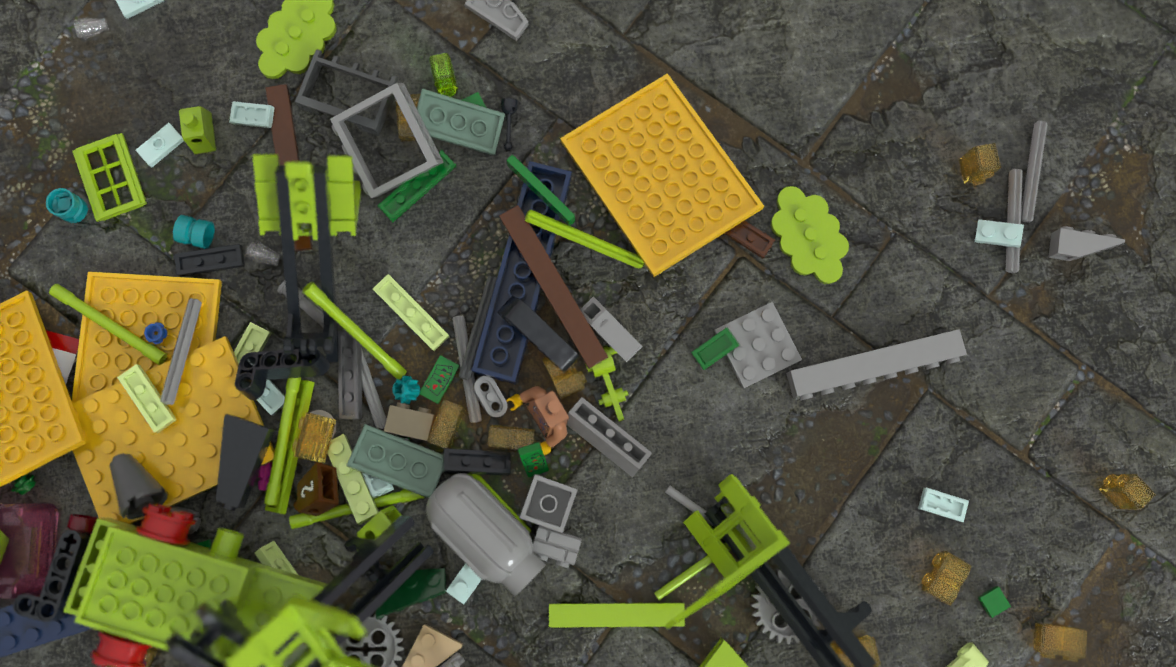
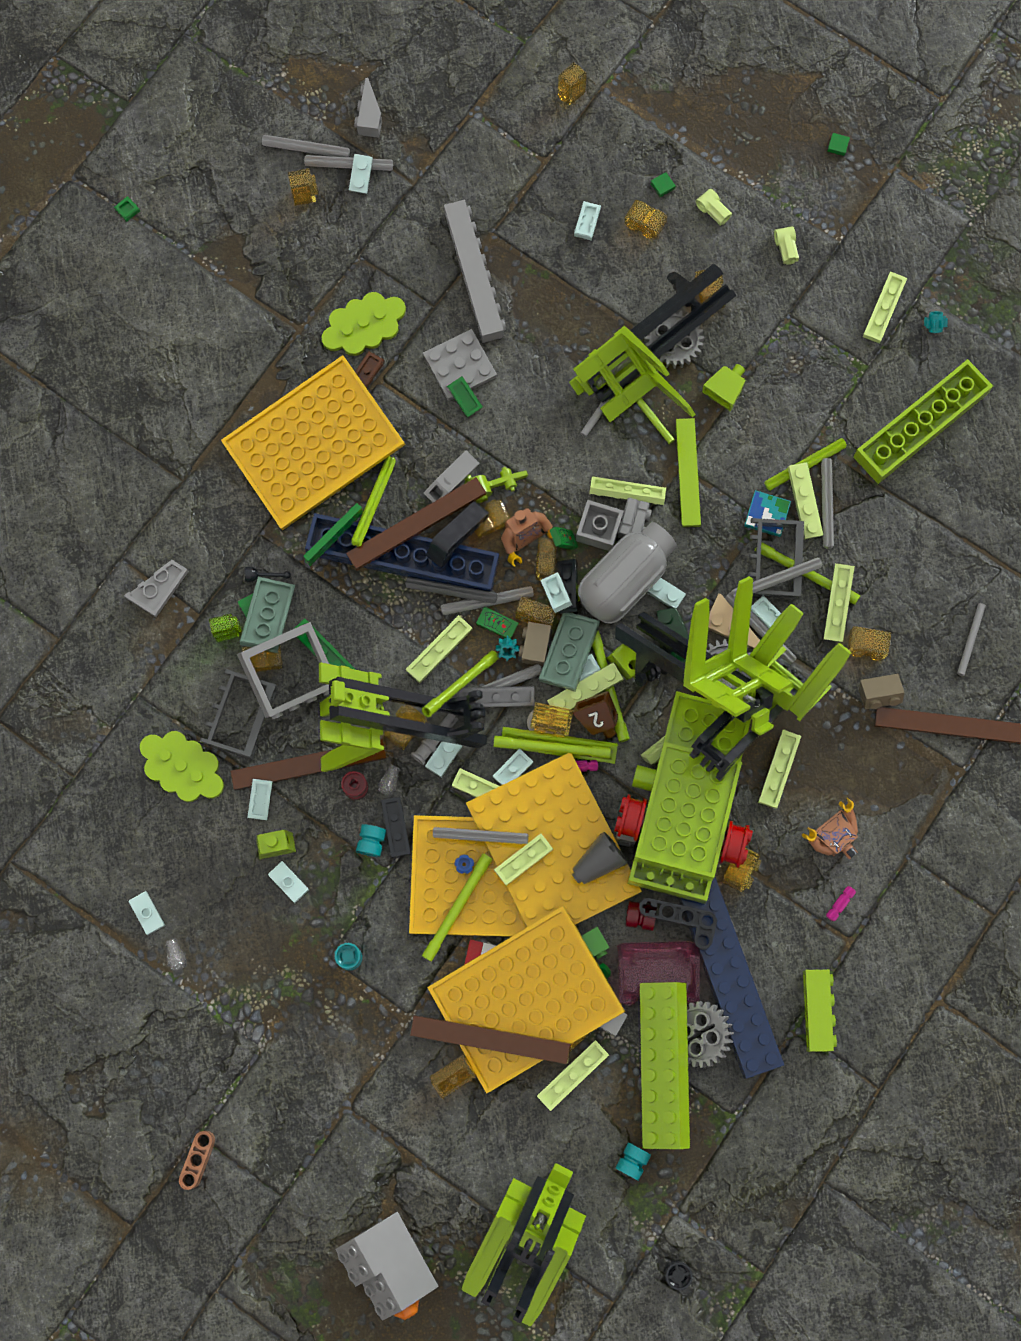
camera: 85 degrees left, 5 degrees down
(57, 477) = (596, 943): none -> bright green brick
(91, 186) = (326, 942): lime piece -> none
(240, 460) = (573, 774): black slope -> none
(249, 213) = (354, 785): none -> dark red wheel
(259, 367) = (494, 745): black beam -> none
(278, 310) = (442, 758): none -> light aqua plate
(310, 267) = (406, 712): none -> clear yellow brick
(464, 448) = (556, 592): none -> light aqua plate
(489, 396) = (509, 578): light grey plate -> none
(593, 540) = (626, 490): none -> yellowish green plate
(607, 437) = (543, 479): light grey brick -> none
(1060, 640) = (690, 136): clear yellow brick -> none

